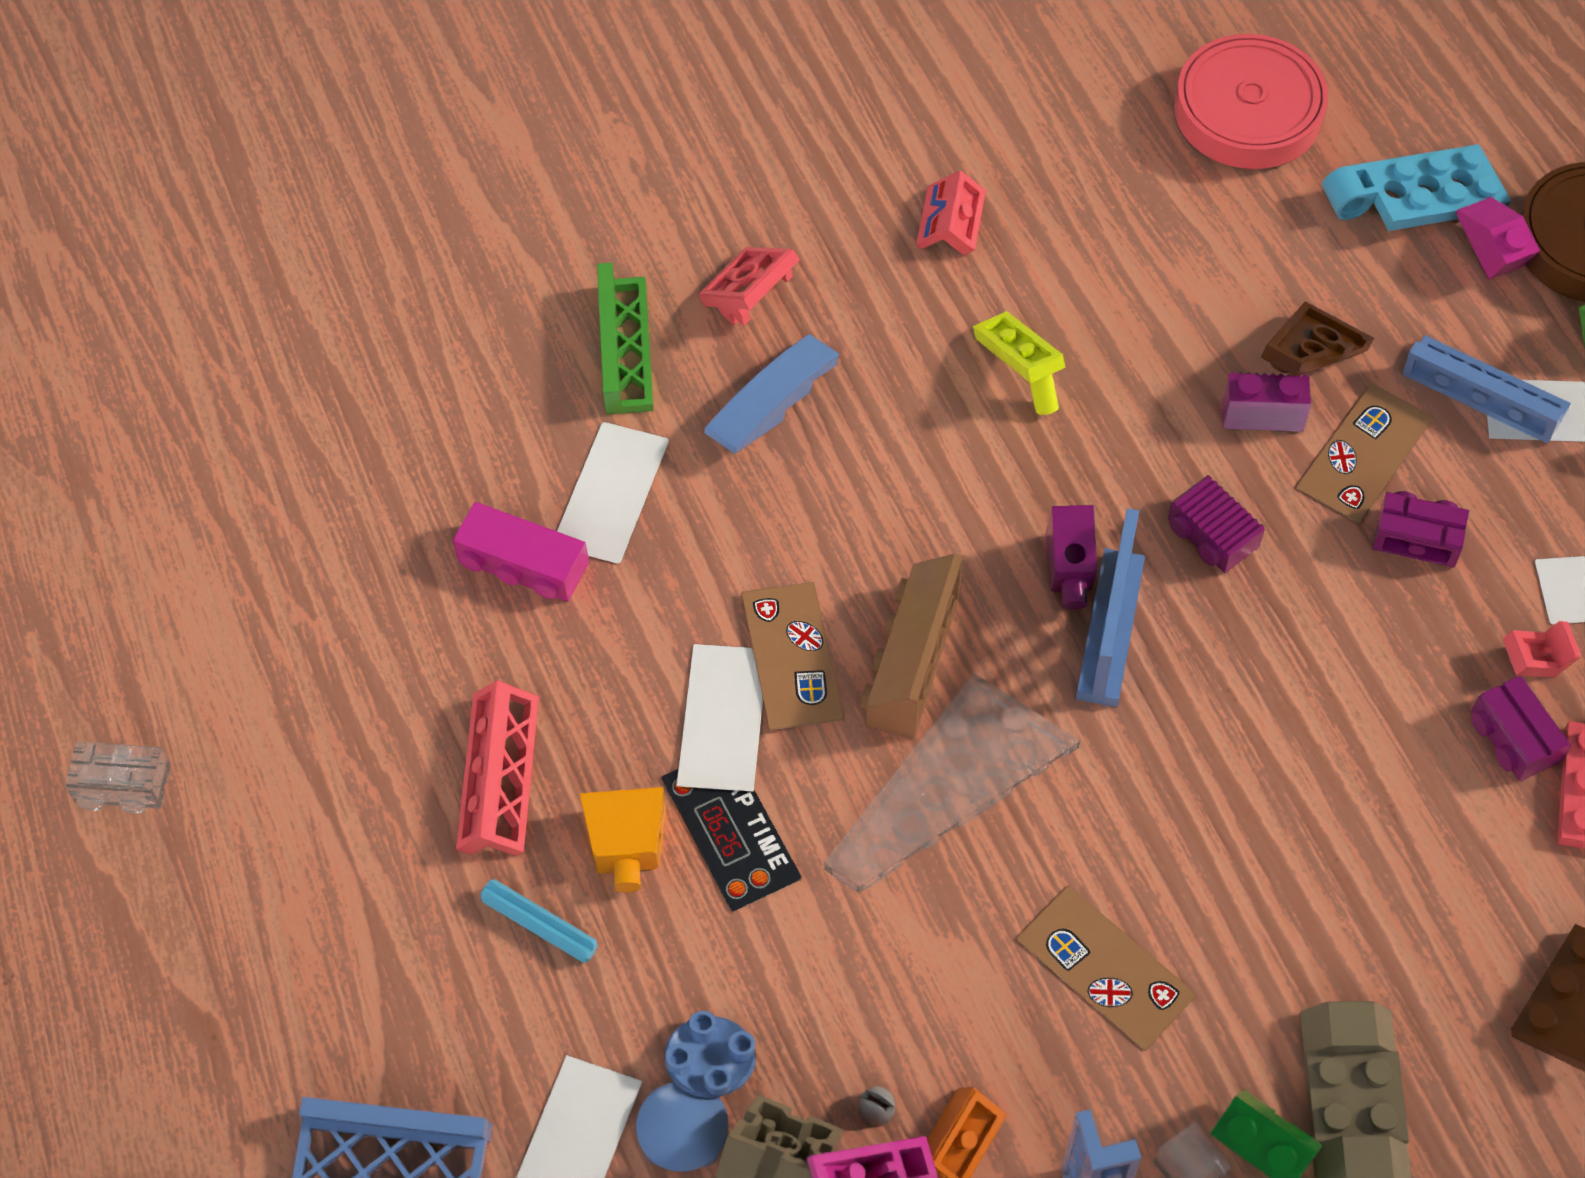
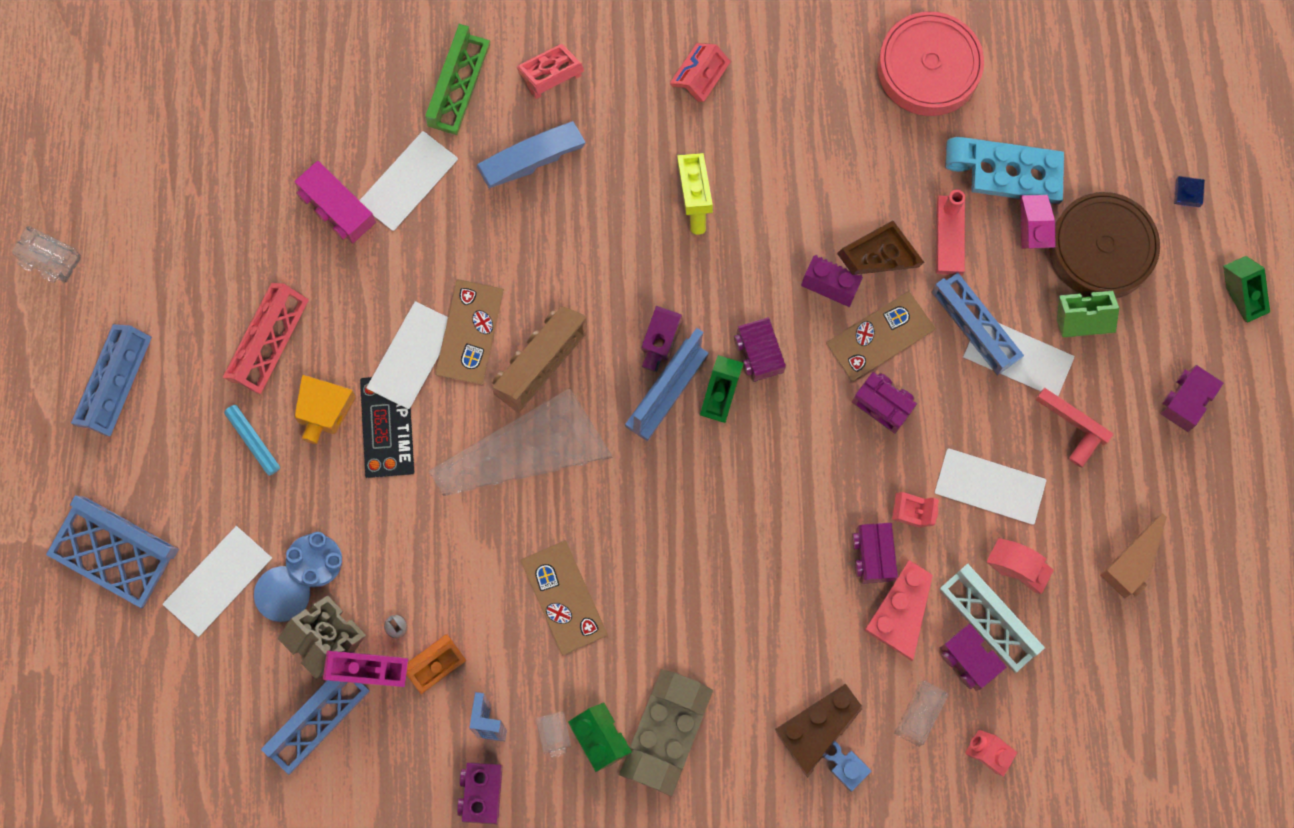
camera: 15 degrees right, 15 degrees up
(292, 911) = (113, 380): none -> medium blue fence
(1189, 594) = (721, 388): none -> green slope
(1387, 289) = (951, 233): none -> coral piece

